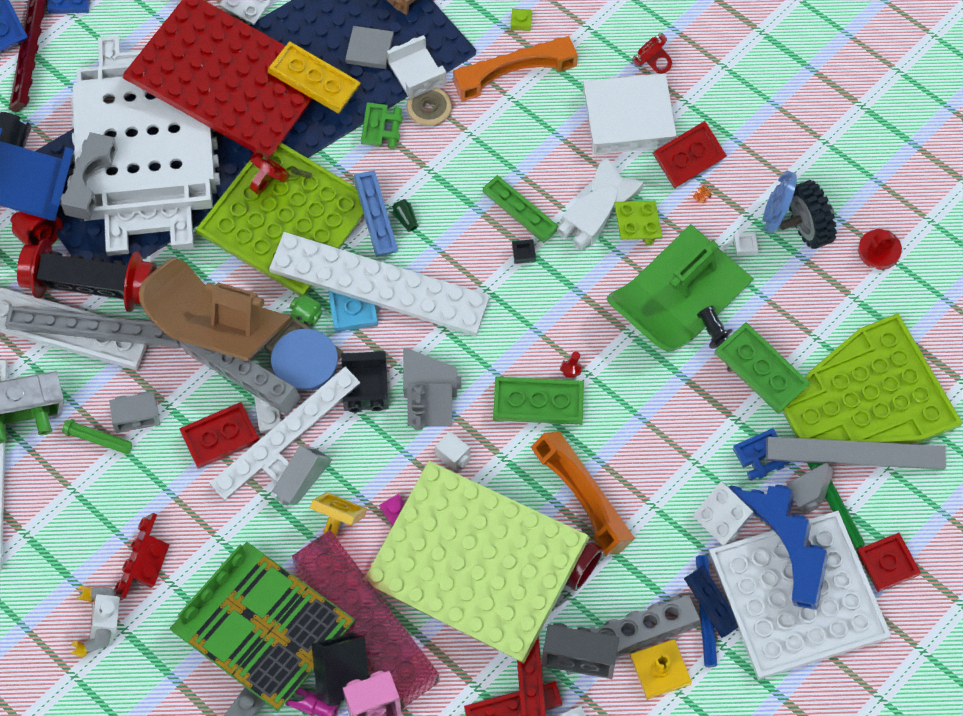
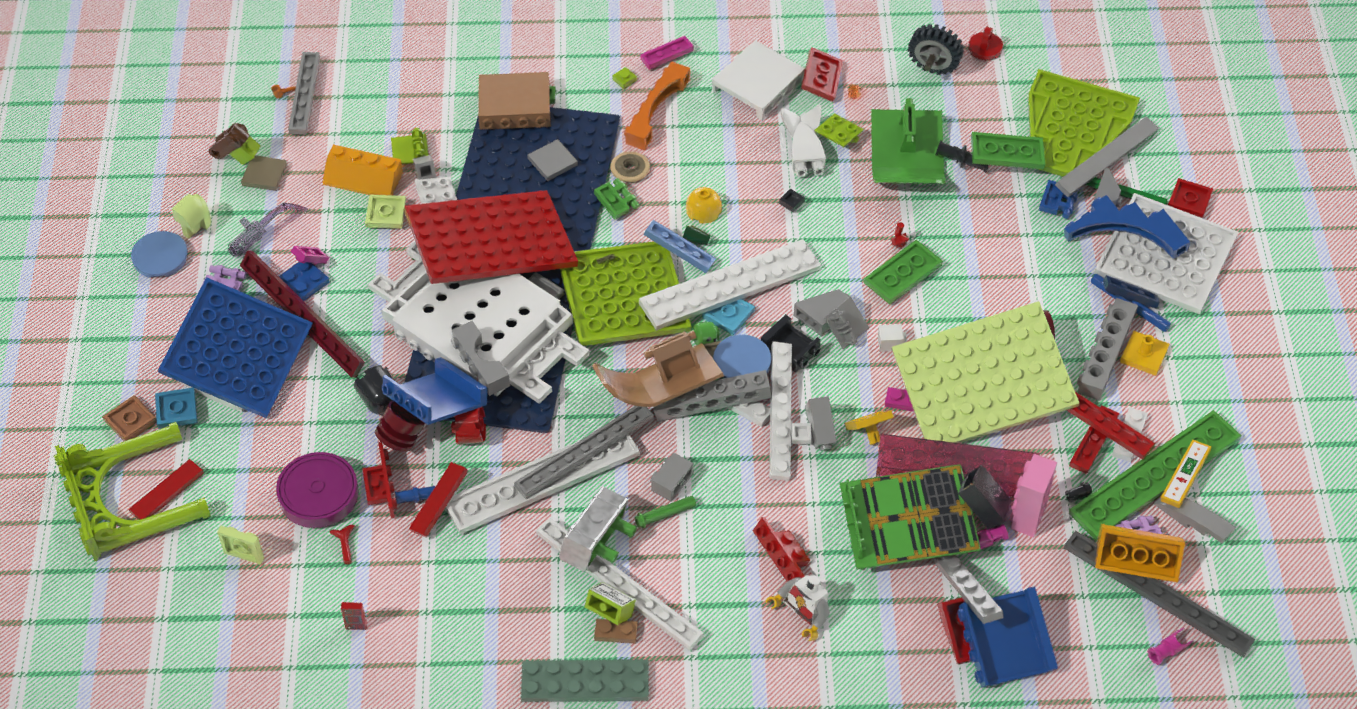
camera: 45 degrees left, 10 degrees down
(43, 269) = (576, 403): brick -> none
(219, 435) = (740, 445): red plate -> none
(229, 158) = (547, 285): none -> light grey tile
(267, 170) = (589, 267): red tile -> none
(314, 77) = (545, 198): yellow tile -> none
(415, 67) = (598, 150): white panel -> none
(445, 193) = (703, 205): none -> yellow cylinder
(520, 209) = (759, 179): bright green plate -> none
(580, 650) = (1105, 368): dark grey brick -> none
(582, 24) = (666, 52): none -> dark pink plate
(608, 526) = (986, 294): orange arch -> none
(651, 52) = (729, 35): red tile -> none
(723, 514) = (1081, 242): white hinge -> none
(745, 244) = (911, 93): white plate -> none
(779, 201) = (909, 56): medium blue tile -> none

